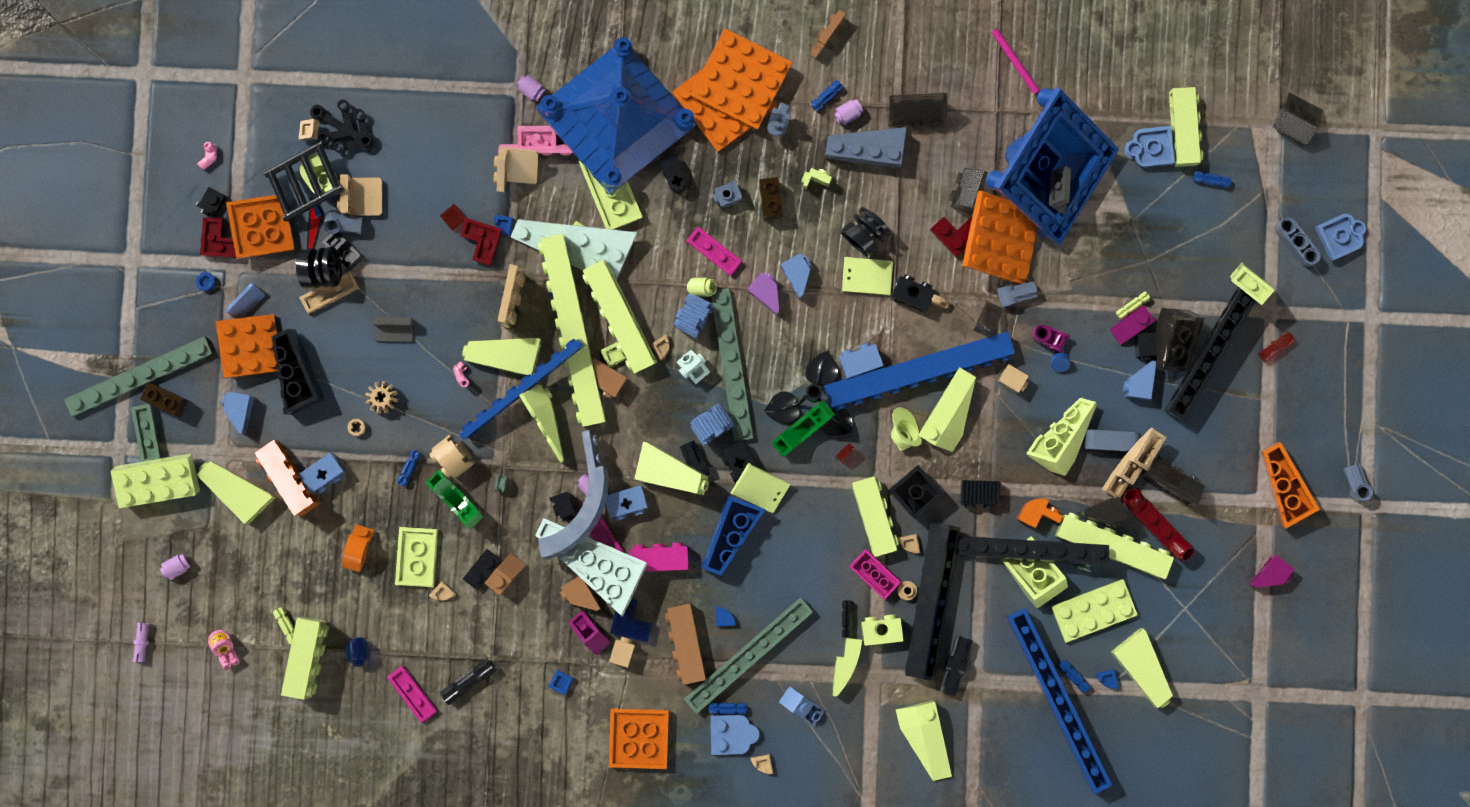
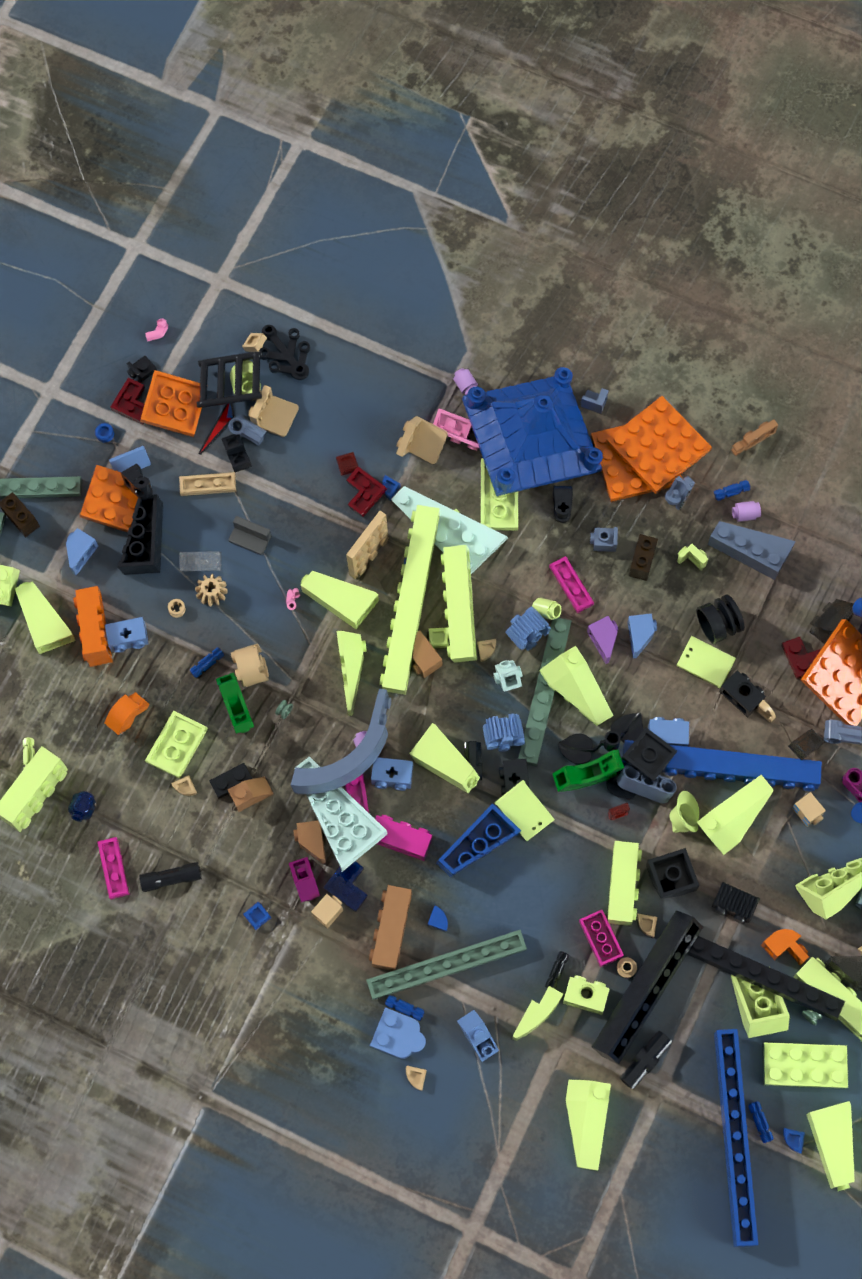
camera: 25 degrees right, 15 degrees down
(258, 321) = (136, 482): none -> black leg
(318, 268) = (208, 455): black wheel -> none
(359, 375) = (200, 561): none -> clear brick
(528, 383) = (352, 625): blue plate -> none
(563, 506) = (333, 750): black brick -> none
(638, 738) = (306, 999): orange plate -> none
(661, 56) = (595, 401): none -> sand blue panel
(757, 348) = (575, 682): none -> yellowish green wedge
(852, 392) = (649, 755): none -> black plate
(867, 412) = (660, 790): none -> sand blue beam
(917, 110) = (812, 530): clear smoke slope -> none

